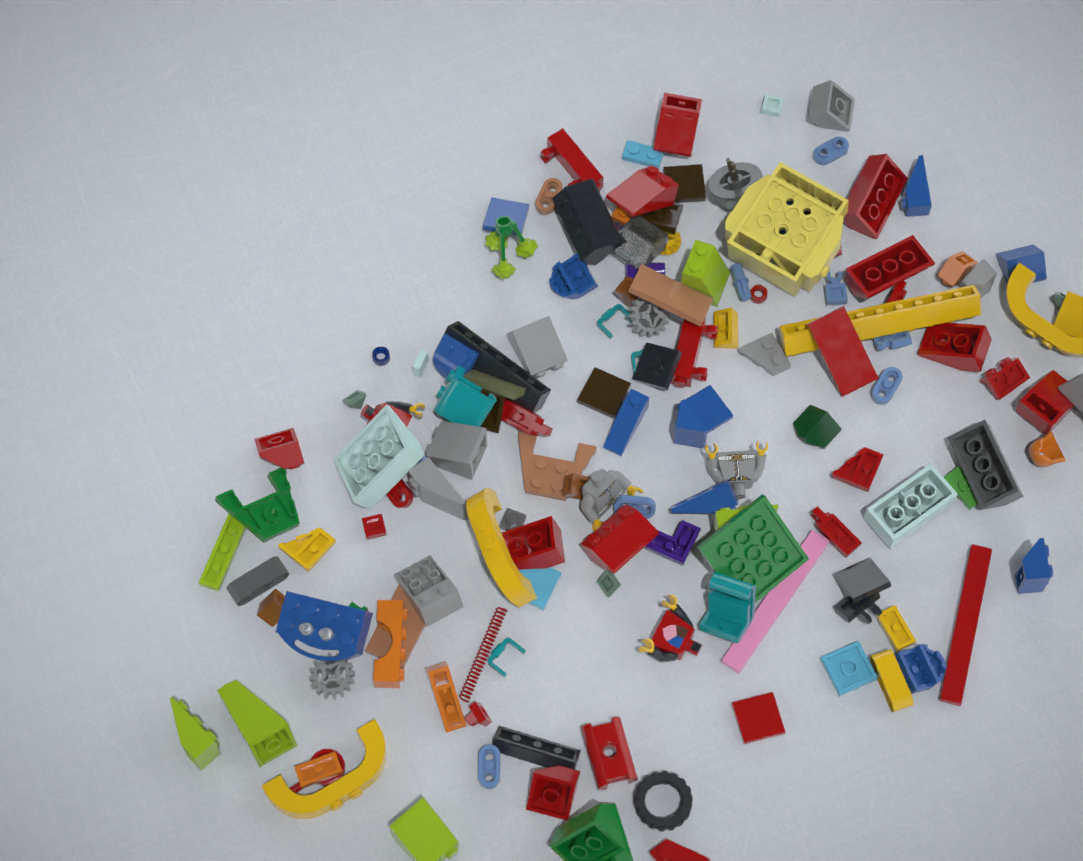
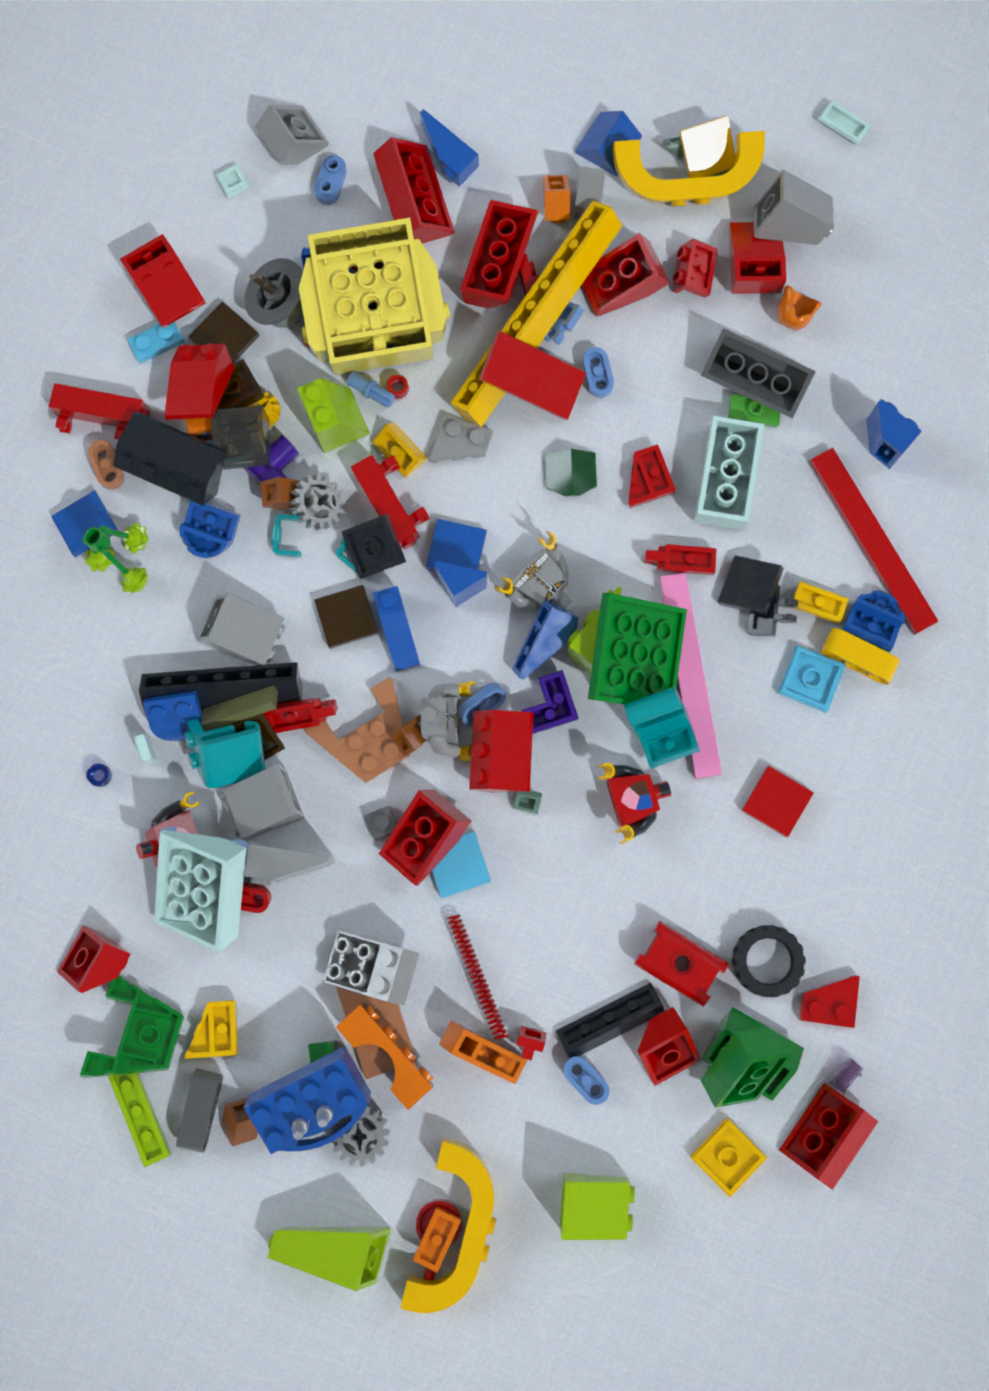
camera: 40 degrees left, 15 degrees up
(197, 743) = (287, 1325): lime slope -> none
(355, 399) = (117, 842): sand green slope -> none
(374, 526) = (257, 951): red plate -> none
(481, 513) = (417, 886): yellow arch -> none
(498, 650) = (487, 961): teal piece -> none
(670, 295) = (322, 465): nougat tile -> none
(835, 291) = (466, 320): medium blue plate -> none

